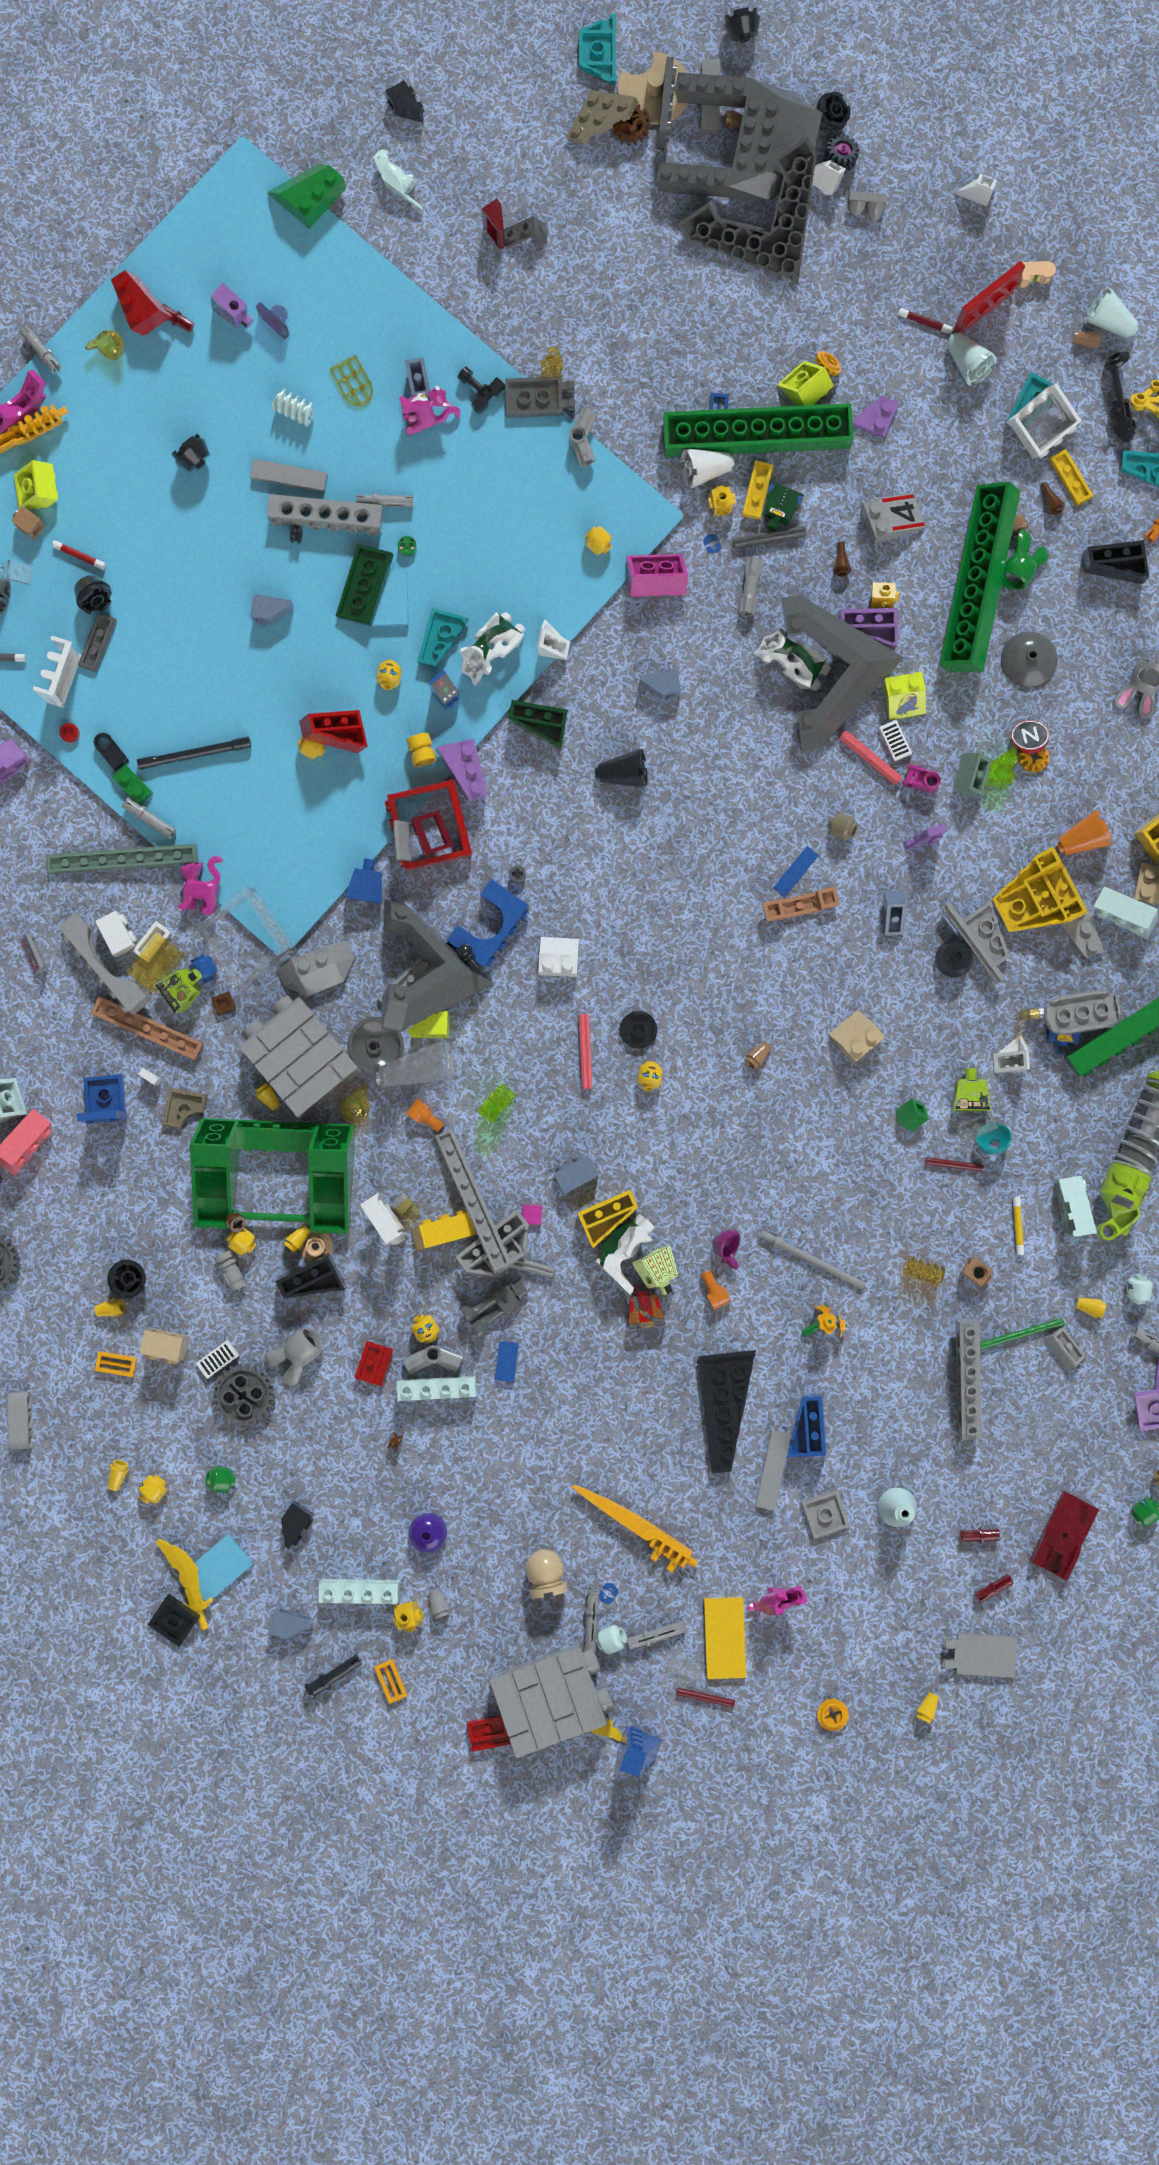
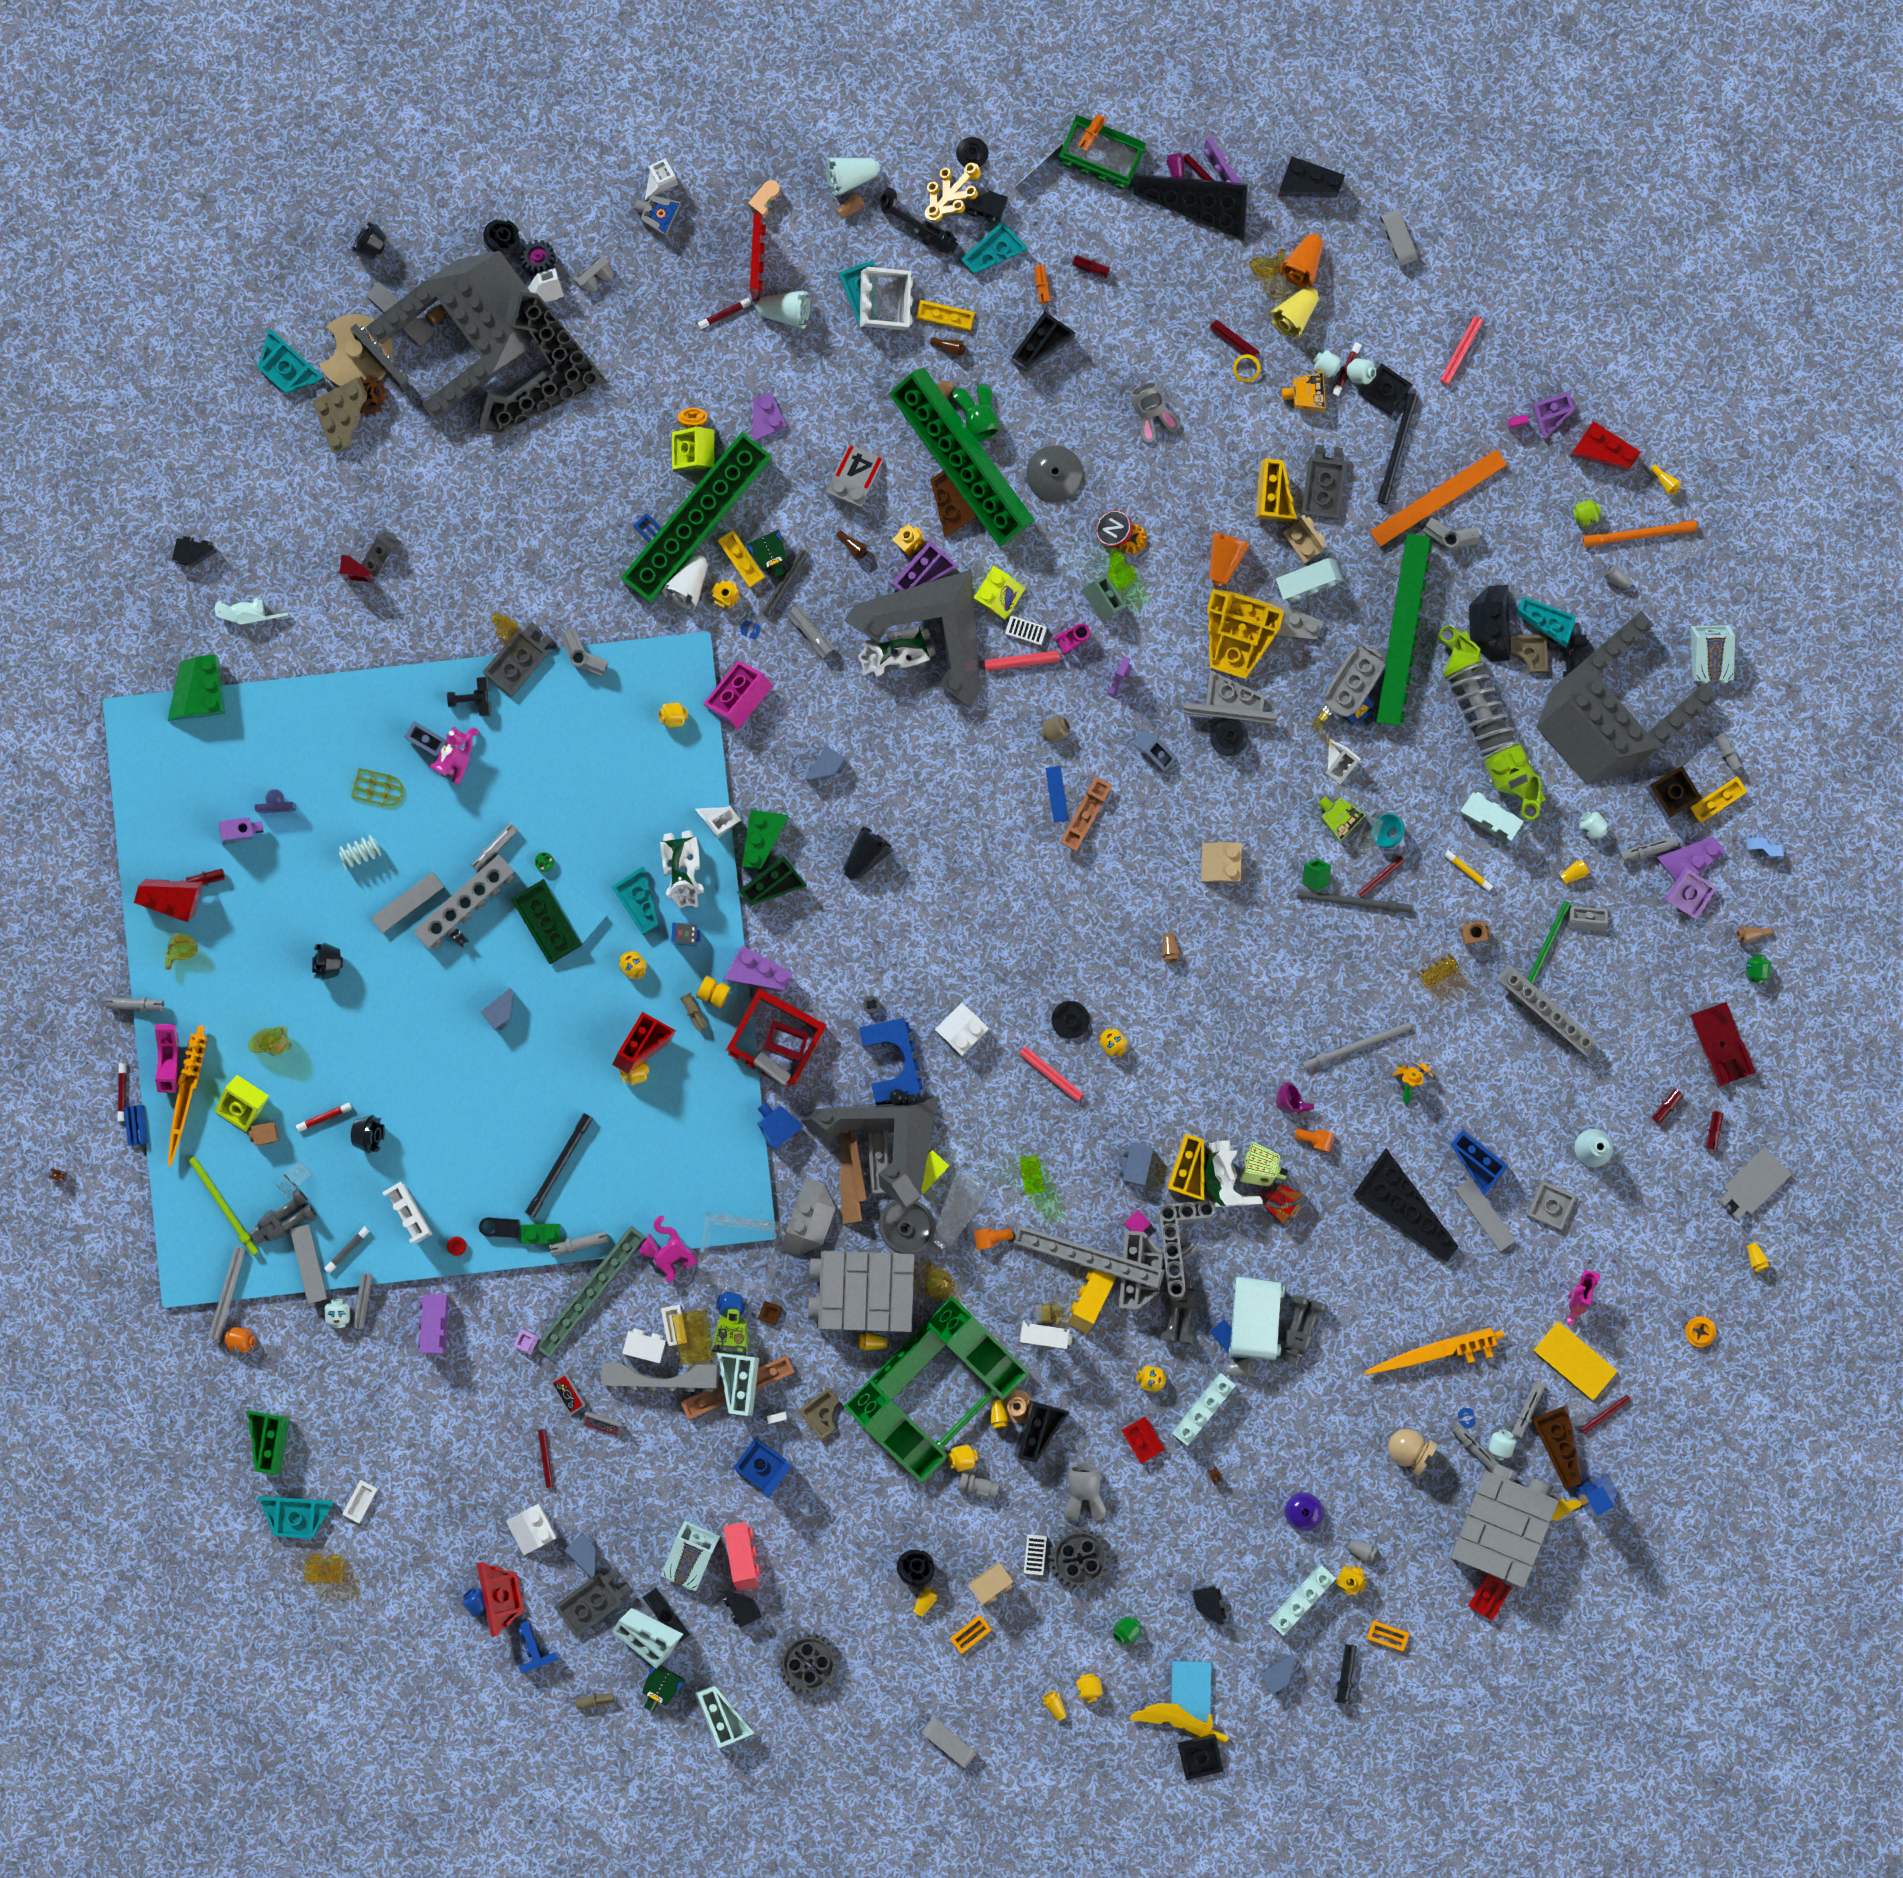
camera: 50 degrees left, 0 degrees up
(34, 910) = (568, 1393): none -> slope
(44, 845) = (526, 1341): none -> lavender tile
(97, 642) = (405, 1163): dark grey tile -> none
(99, 468) = (271, 1040): none -> clear yellow piece
(148, 1025) = (739, 1381): none -> light aqua wedge
(239, 1226) = (943, 1452): reddish brown bush -> none
(376, 975) = (851, 1179): none -> medium nougat wedge
(394, 749) = (693, 1011): none -> dark tan axle
(421, 1359) = (1172, 1402): light grey piece -> none
(493, 1389) = (1241, 1368): none -> light grey cone
(539, 1367) = (1255, 1319): none -> light aqua windscreen
(541, 1254) = (1174, 1242): none -> light grey beam
(550, 1412) = (1298, 1342): none -> dark grey piece
(567, 684) = (761, 837): none -> green wedge
(652, 1682) = (1559, 1440): none -> reddish brown wing
(936, 607) = (952, 507): none -> reddish brown wing
(939, 1192) = (1391, 906): none -> dark grey bar
(953, 209) = (658, 214): none -> torso

